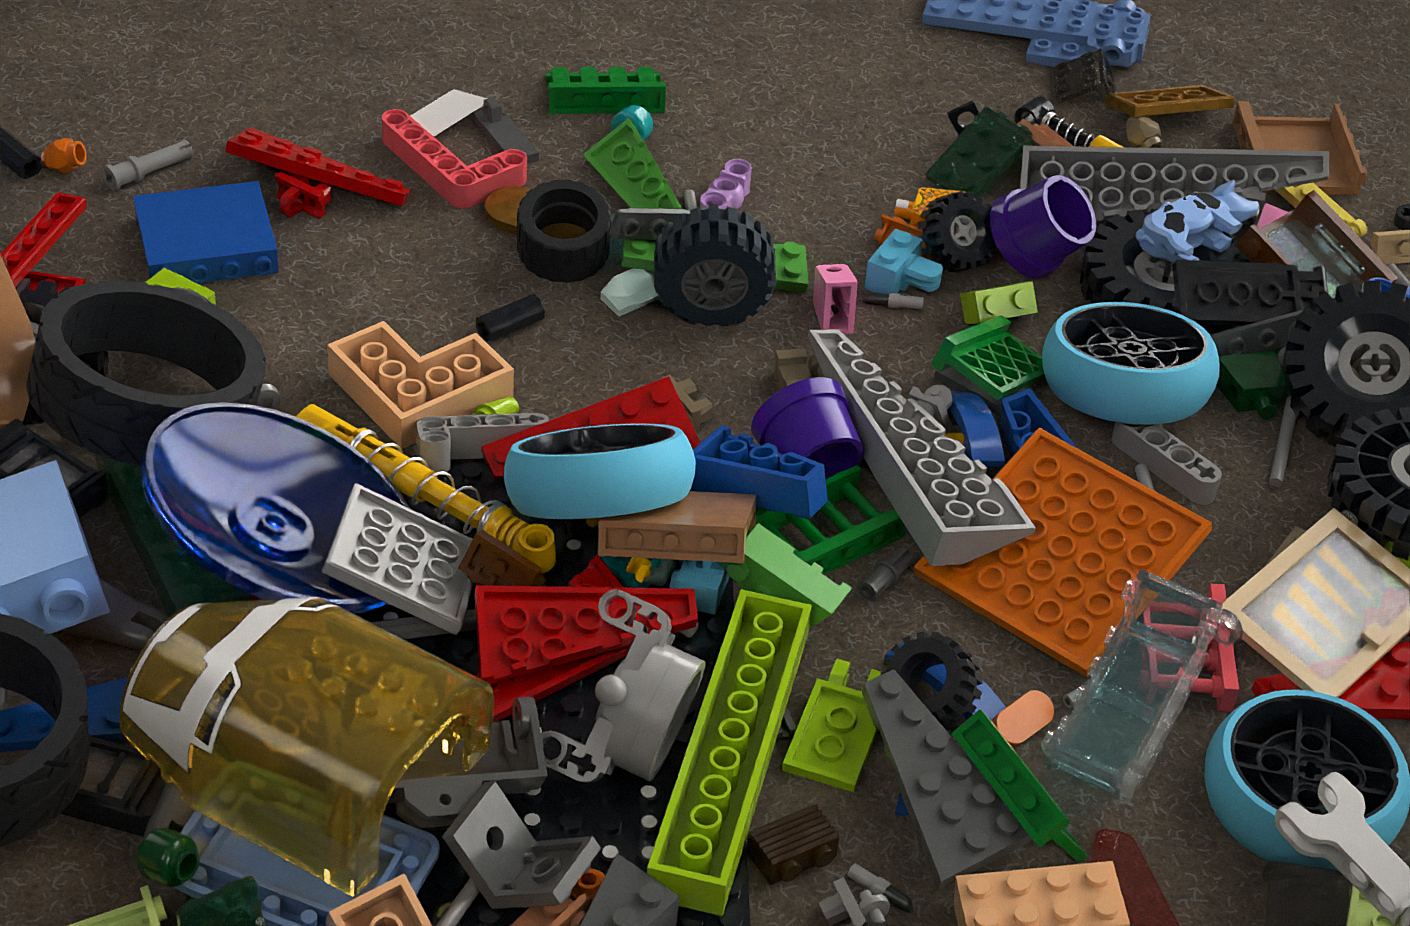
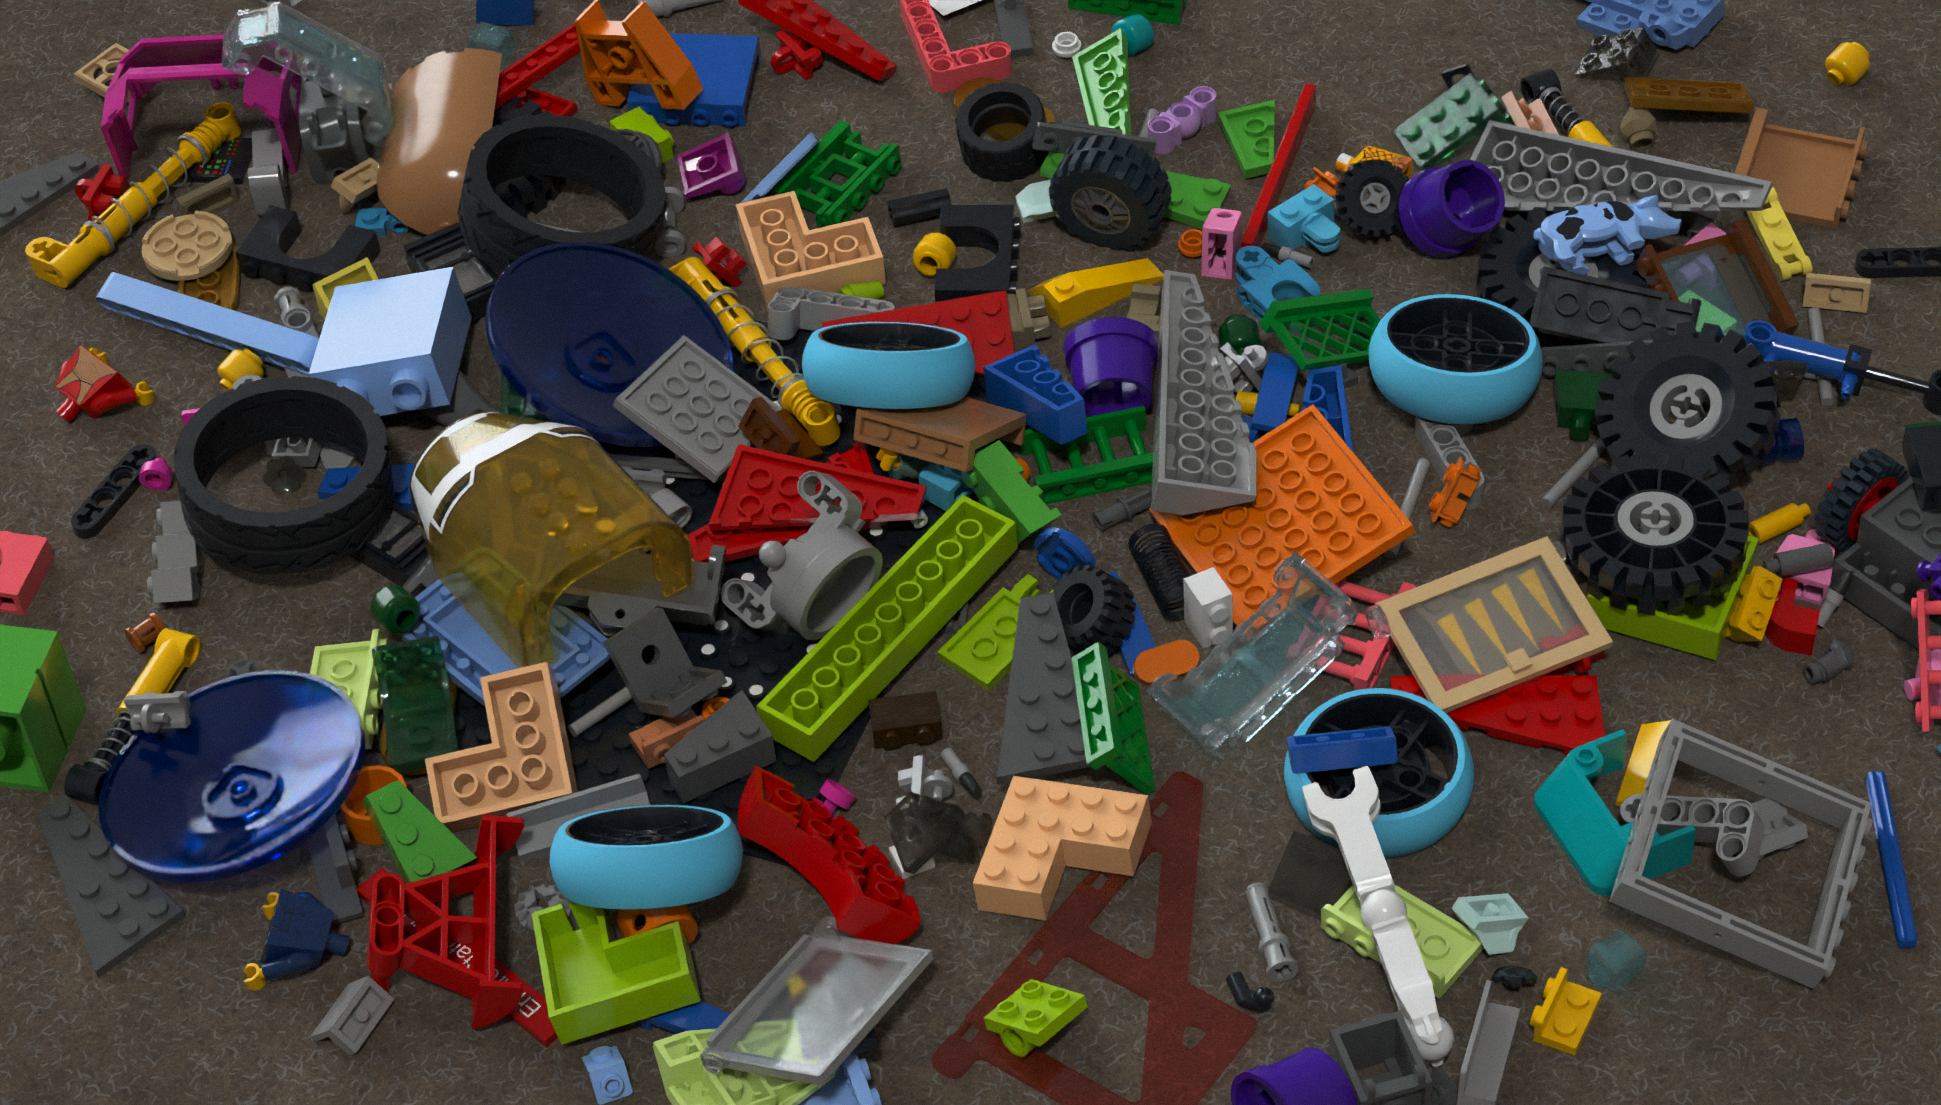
camera: 30 degrees right, 5 degrees up
(146, 212) = (633, 53): none -> orange wedge
(273, 314) = (712, 167): none -> magenta slope
(335, 400) = (726, 268): none -> red hips
(349, 307) = (782, 168): none -> light blue tile
(417, 286) = (827, 159): none -> green fence
(553, 361) = (934, 253): none -> yellow head
(570, 145) = (1066, 44): none -> white plate
(603, 327) = (983, 227): none -> black arch
(730, 365) = (1089, 290): none -> yellow wedge
(798, 200) = (1250, 136): none -> bright green wing
(800, 305) = (1191, 243): none -> orange plate
(845, 222) = (1280, 167): none -> red tile
(866, 630) = (1061, 552): none -> blue tile
(899, 330) = (1266, 281): none -> dark azure piece
(905, 375) = (1239, 333): none -> dark green head
(972, 625) = (1152, 555): none -> black piece
(1002, 300) = (1377, 275): lime brick -> none
(1043, 651) = (1208, 607): none -> white brick
(1201, 472) = (1457, 480): none -> orange hinge
(1280, 56) = (1847, 64): none -> yellow head
(1280, 763) = (1342, 749): none -> blue slope

